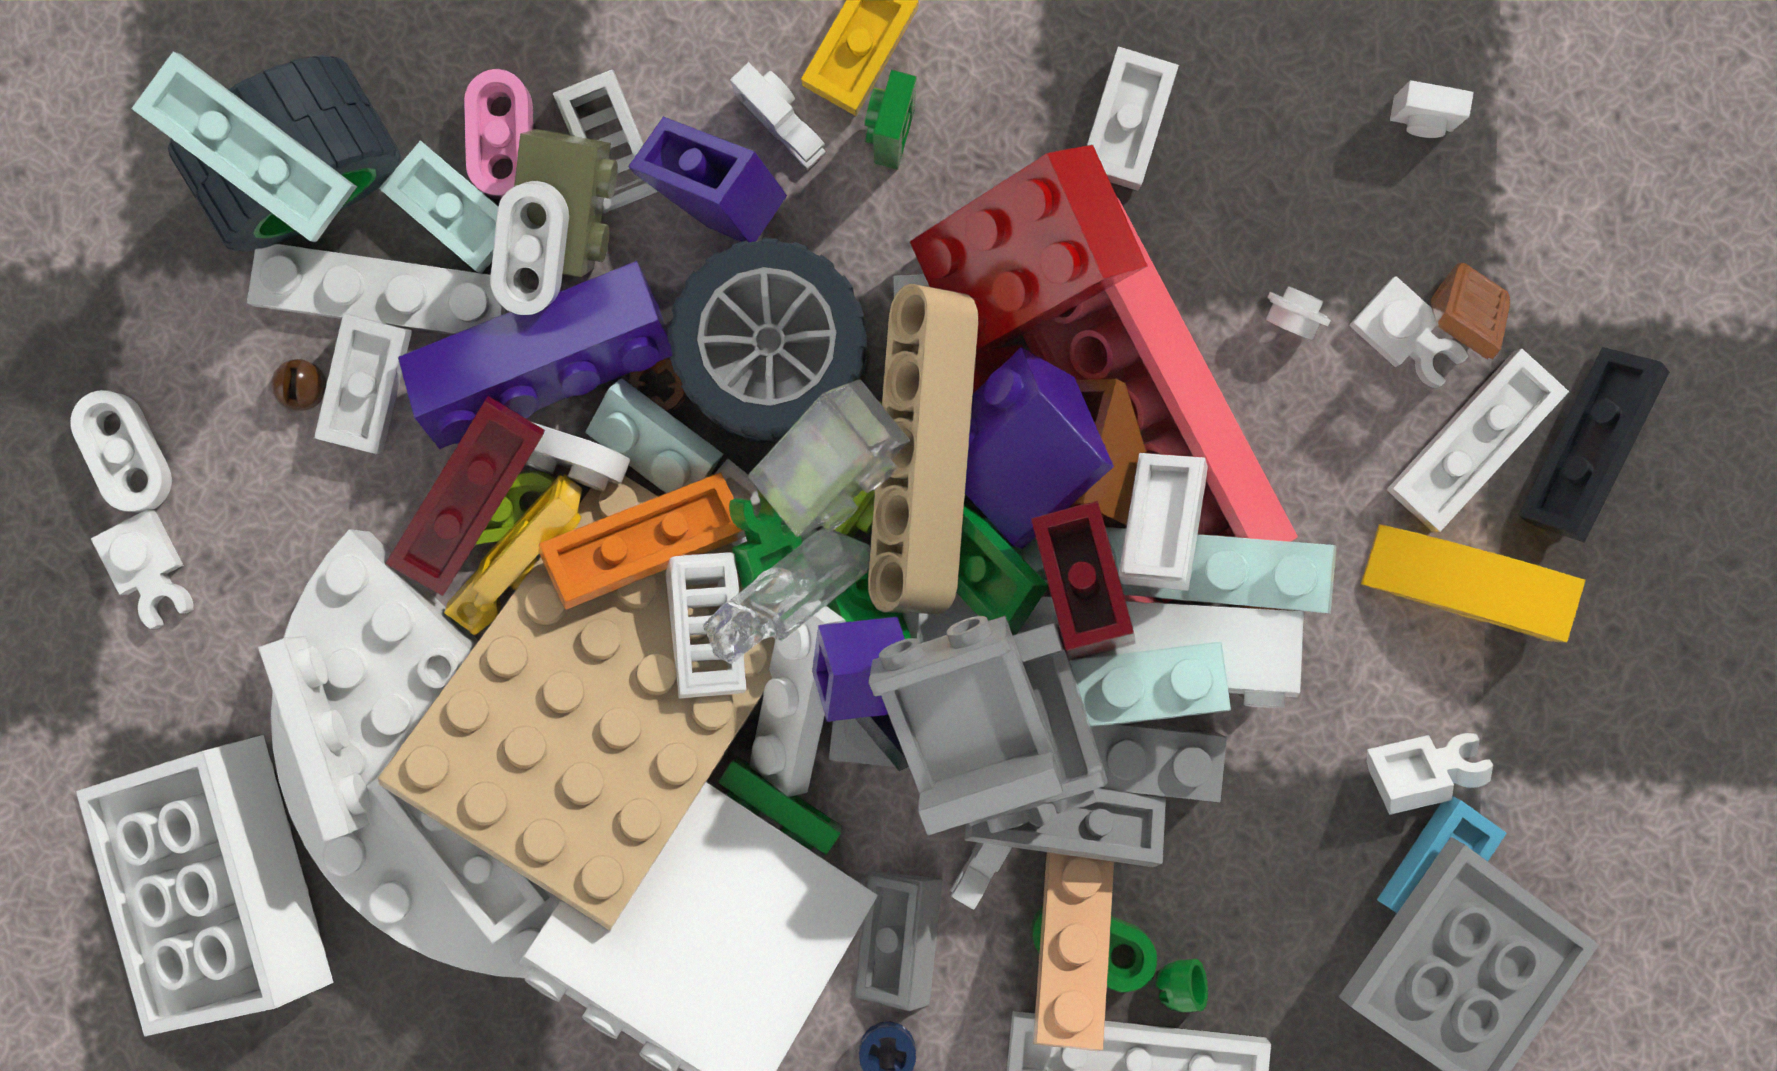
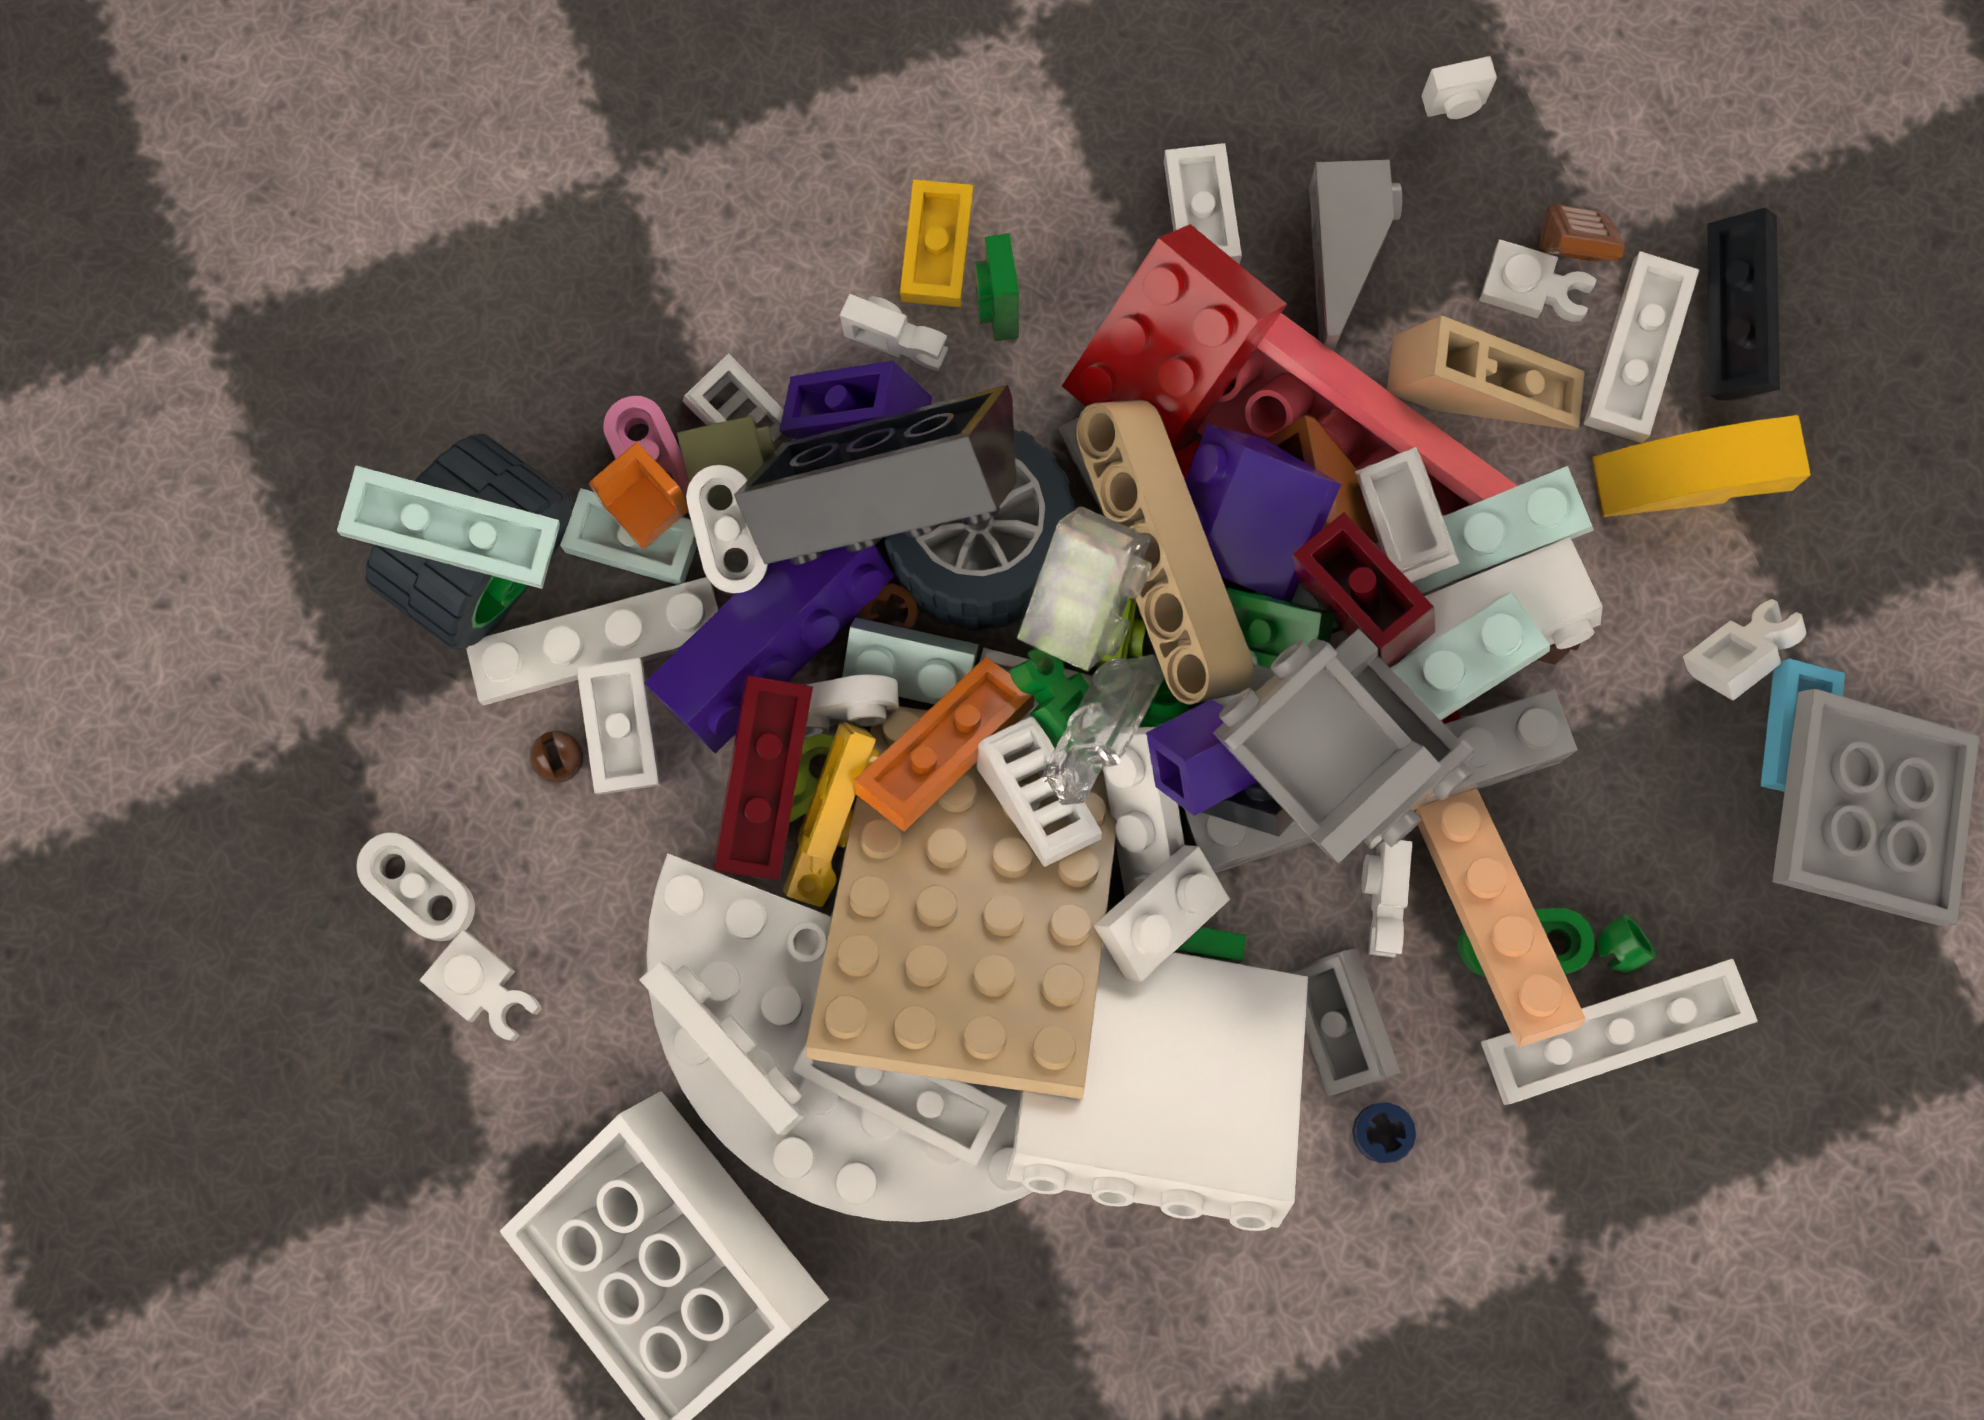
camera: 20 degrees left, 10 degrees down
(465, 175) = (639, 495): none -> orange panel
(687, 269) = (883, 478): none -> slope
(768, 785) = (1162, 913): none -> white plate
(1113, 829) = (1466, 824): light grey plate -> none
(1260, 199) = (1349, 223): none -> light grey slope
(1297, 312) = (1428, 302): white plate -> none
(1313, 405) = (1481, 375): none -> tan slope

